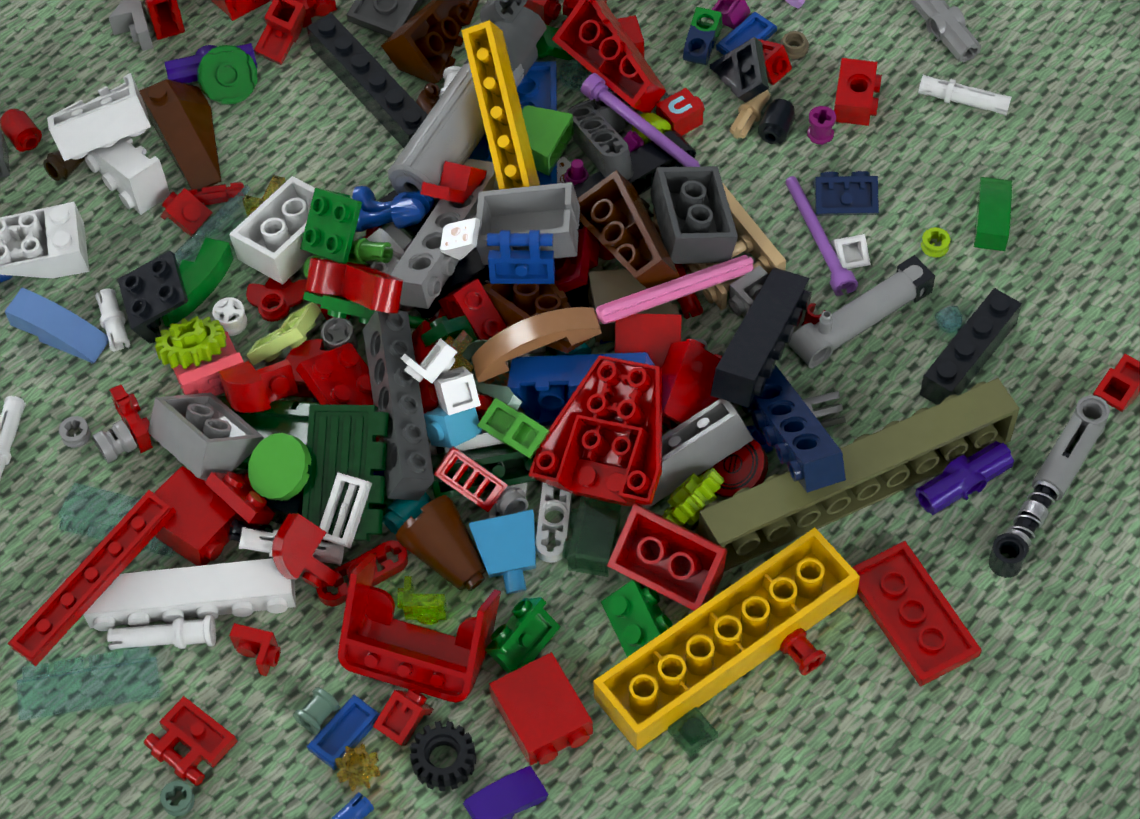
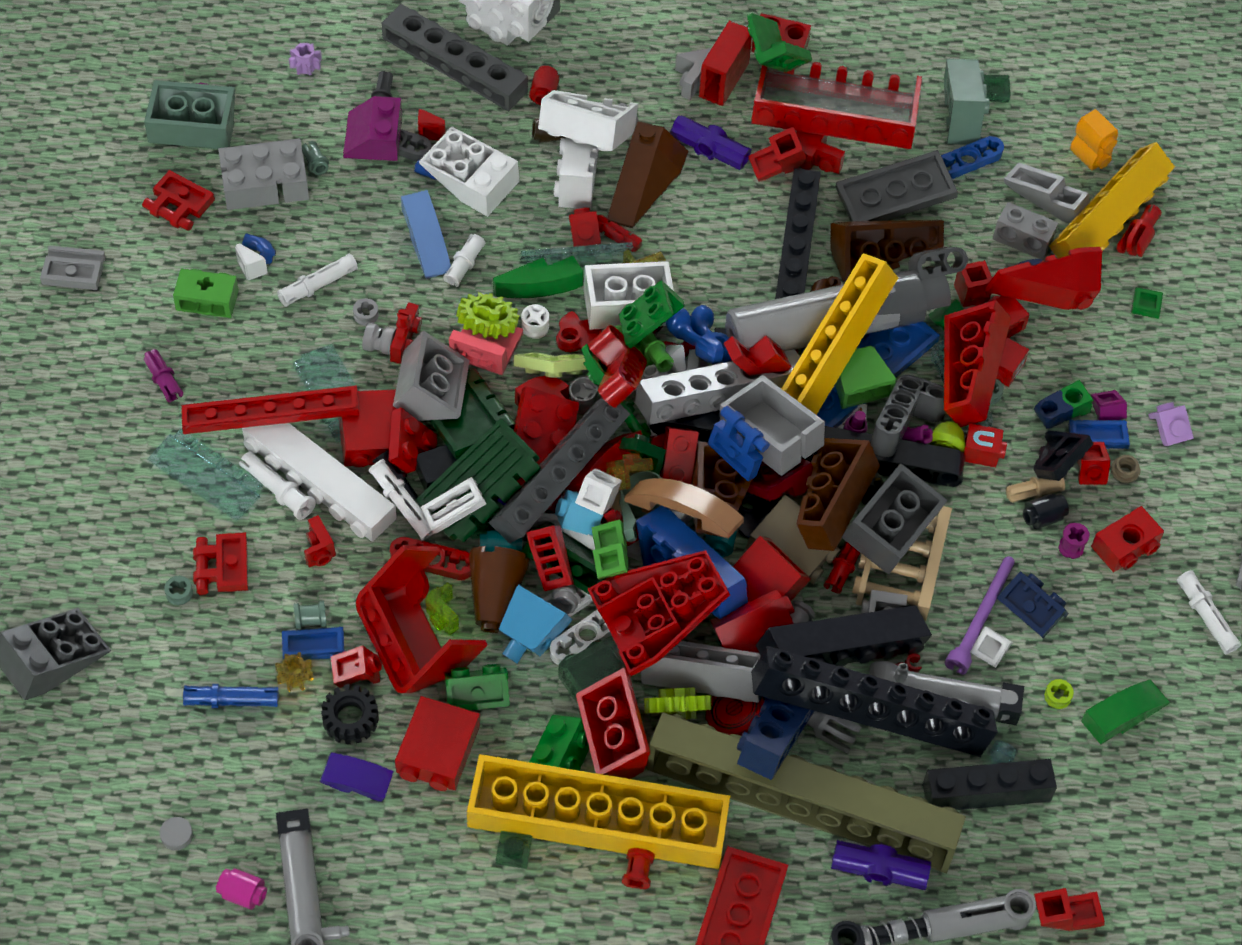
camera: 40 degrees right, 0 degrees up
(152, 293) = (497, 263): black bracket -> none
(227, 75) = (709, 158): green tile -> none
(253, 389) = (490, 379): red brick -> none
(279, 466) = (444, 441): bright green tile -> none
(294, 549) = (393, 502): red brick -> none
(437, 361) = (604, 461): white bracket -> none
(460, 238) = (713, 394): white slope -> none
(595, 88) = (933, 375): medium lavender piece -> none
(674, 289) = (821, 556): bright pink axle -> none
(836, 359) = (873, 701): none -> black brick

